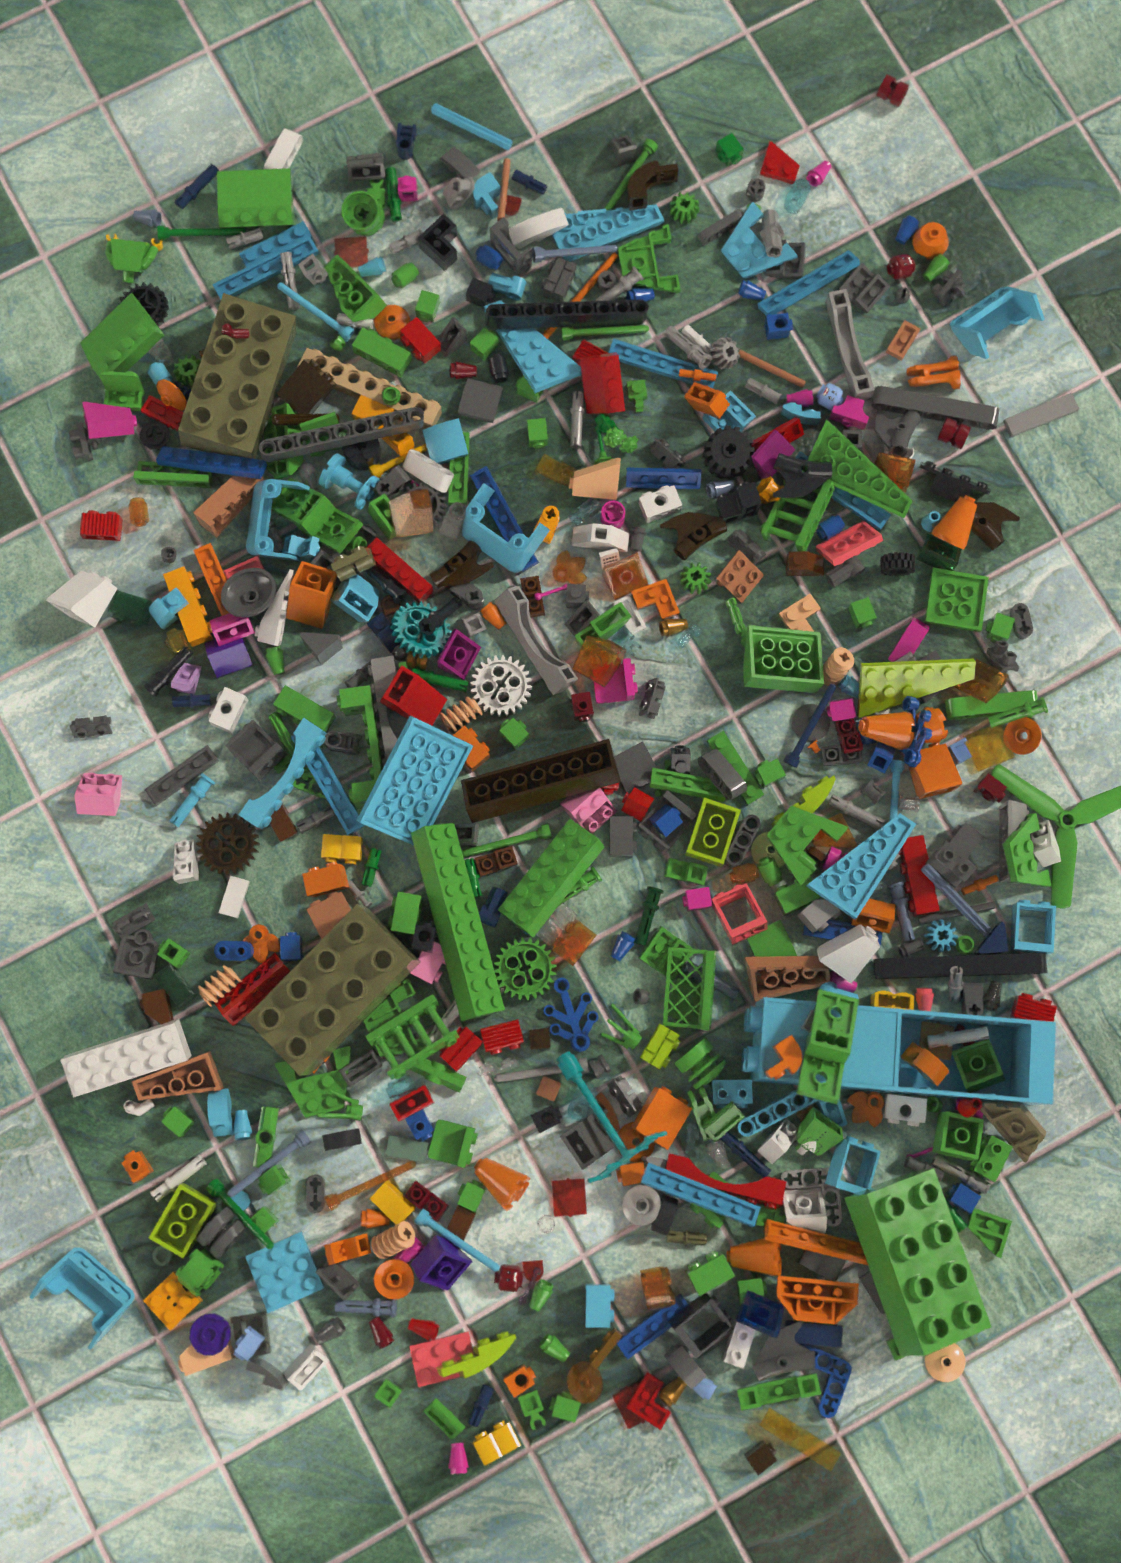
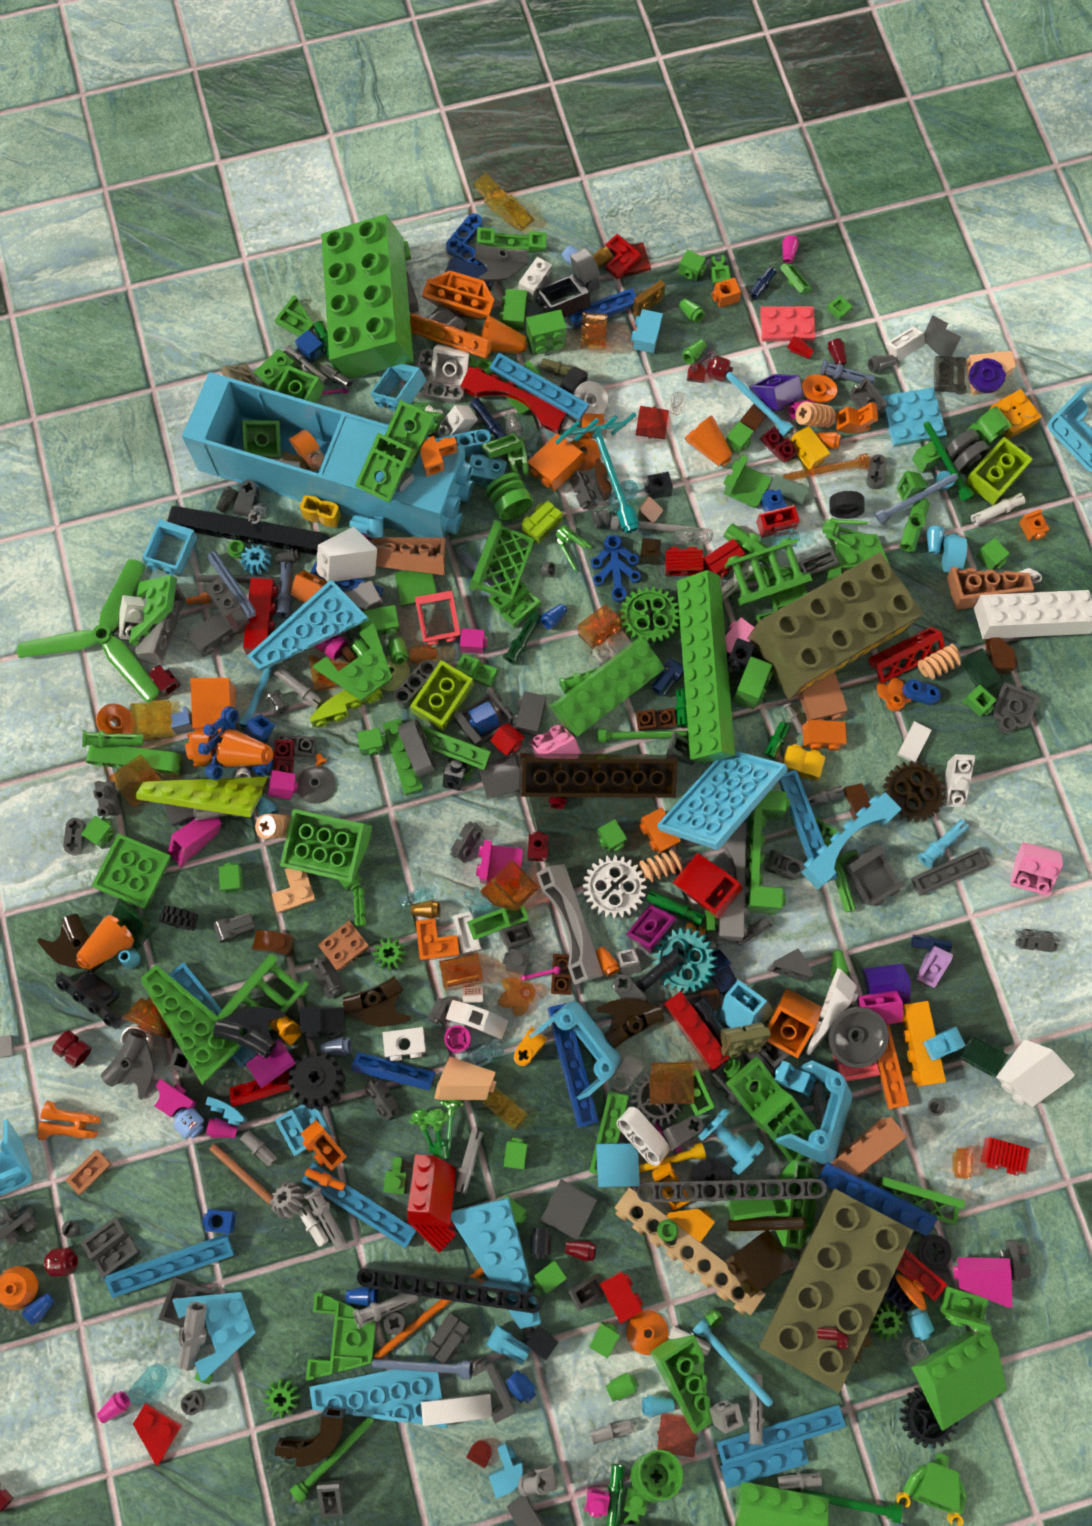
camera: 165 degrees left, 5 degrees down
(133, 921) = (1015, 740): dark grey hinge -> none
(163, 677) = (957, 972): black pin -> none
(176, 640) = (939, 1006): clear yellow head -> none
(227, 721) = (886, 930): white brick -> none
(248, 1344) = (954, 362): light blue brick -> none
(291, 947) = (866, 681): blue brick -> none
(299, 707) = (819, 906): bright green brick -> none
(382, 352) = (666, 1294): bright green brick -> none
(436, 242) = (579, 1419): black brick -> none
(485, 1354) = (751, 313): lime slope -> none
(497, 1442) = (755, 252): yellow brick -> none
(504, 188) = (484, 1473): nougat bar -> none
(529, 182) = (452, 1478): dark blue axle -> none
(568, 333) = (452, 1268): bright green piece -> none
(587, 1141) = (629, 456): dark grey slope -> none
(590, 1379) = (673, 272): clear orange dish -> none
(720, 227) = (246, 1362): dark grey beam -> none
(729, 150) = (208, 1462): green brick -> none
(751, 291) = (236, 1272): blue cone -> none
(761, 1314) = (512, 287): clear blue slope -> none
(761, 1457) = (539, 198): dark brown brick -> none
(793, 757) = (345, 750): dark blue piece -> none
(830, 527) = (235, 976): blue brick -> none
(841, 319) = (152, 1142): light grey arch -> none
(849, 543) = (221, 952): coral plate -> none
(909, 803) = (246, 683): clear bush -> none
(924, 998) = (290, 510): coral cone -> none
(935, 407) = (81, 1084): dark grey beam -> none
(936, 267) = (21, 1252): bright green cone -> none
(995, 942) = (208, 542): dark blue slope -> none
(1029, 1009) = (195, 478): red brick -> none

